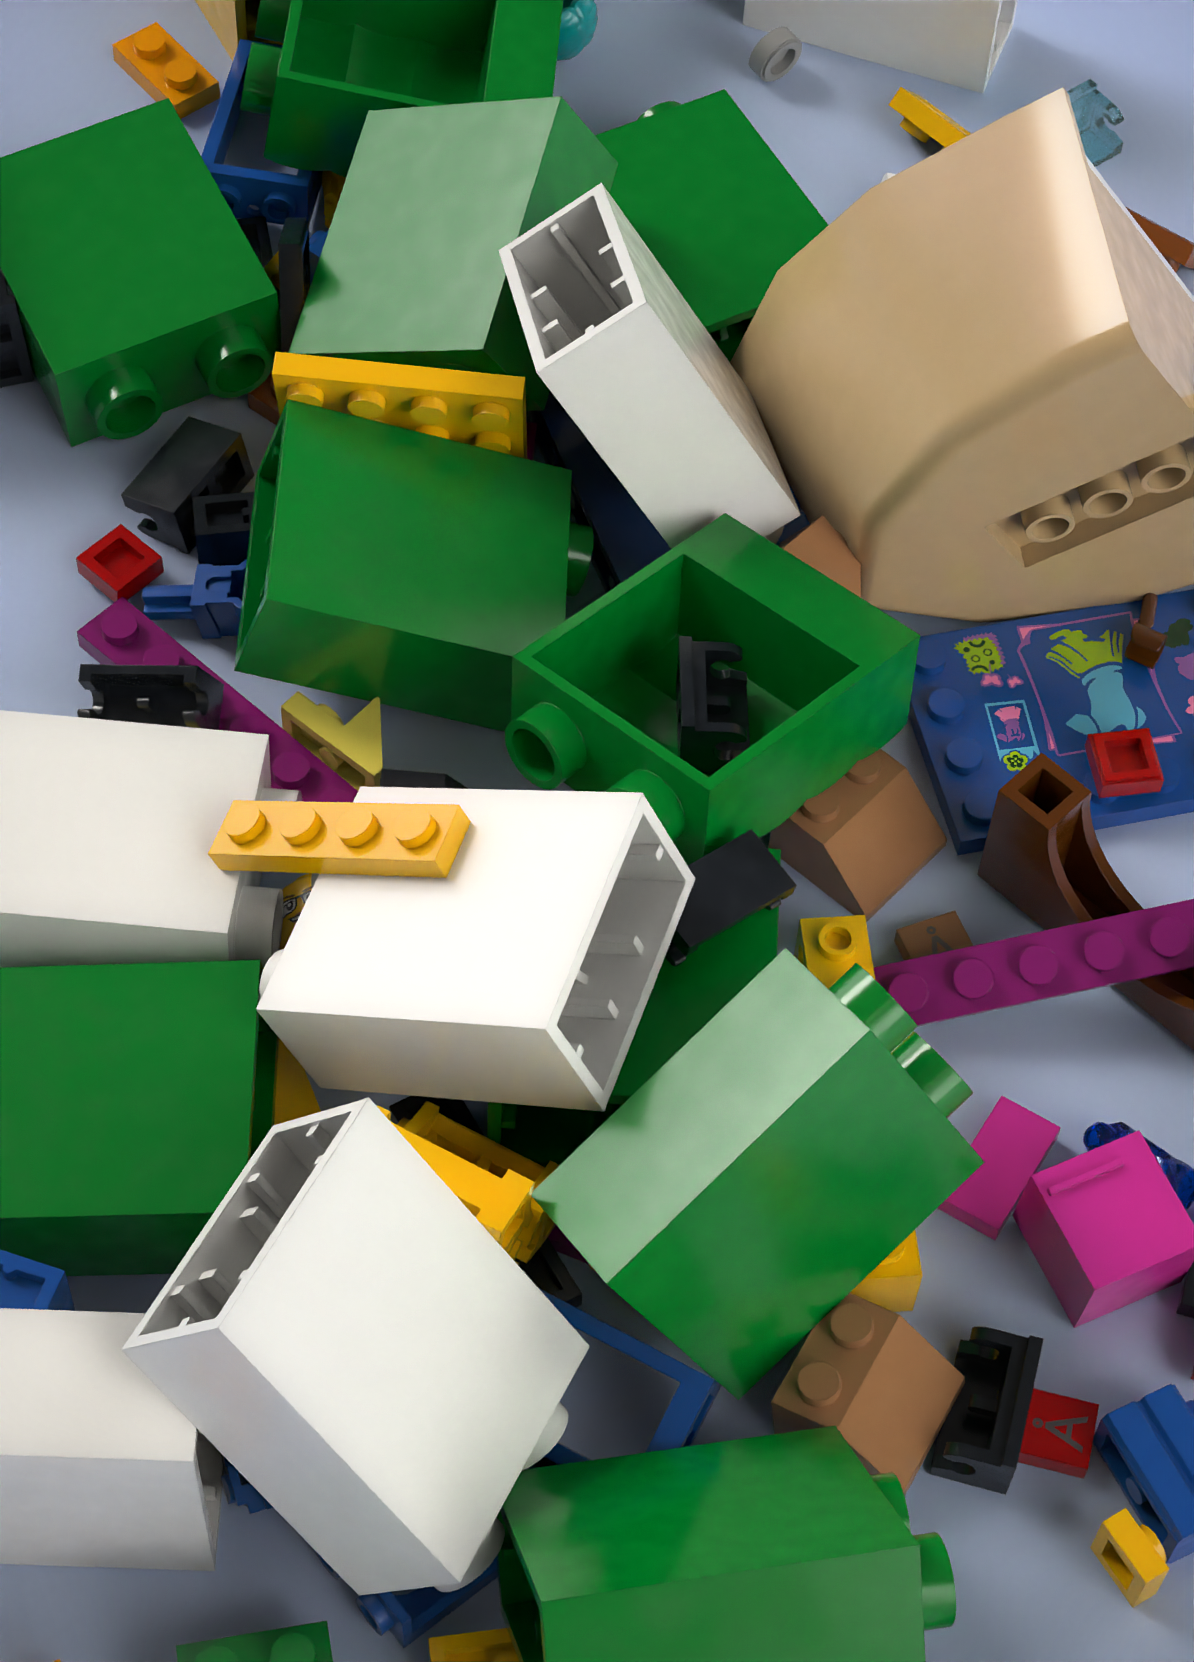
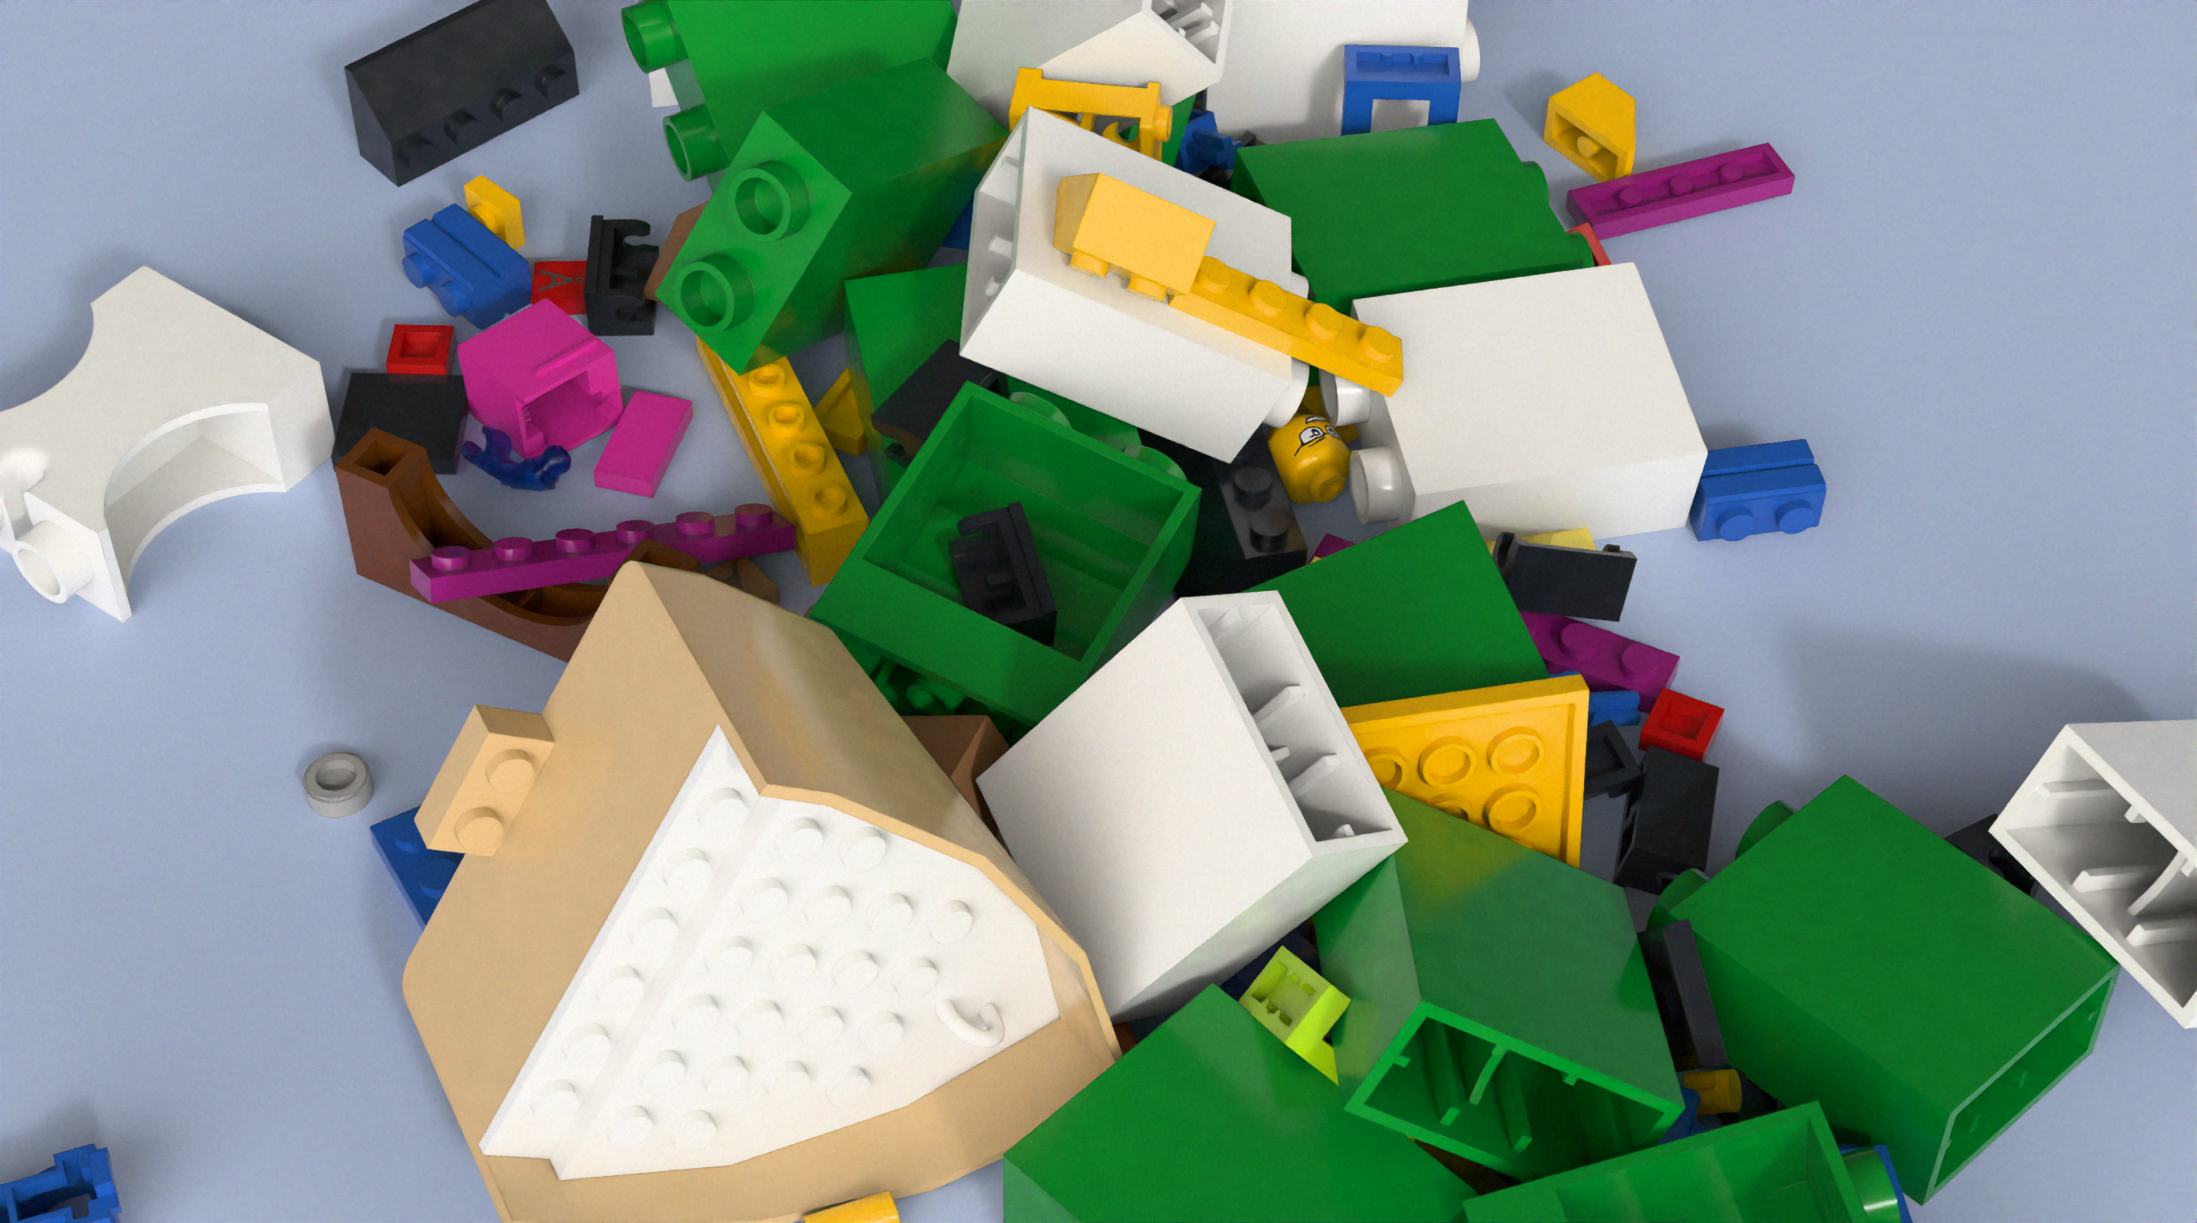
camera: 165 degrees right, 10 degrees down
(498, 840) = (1129, 234): none -> yellow slope

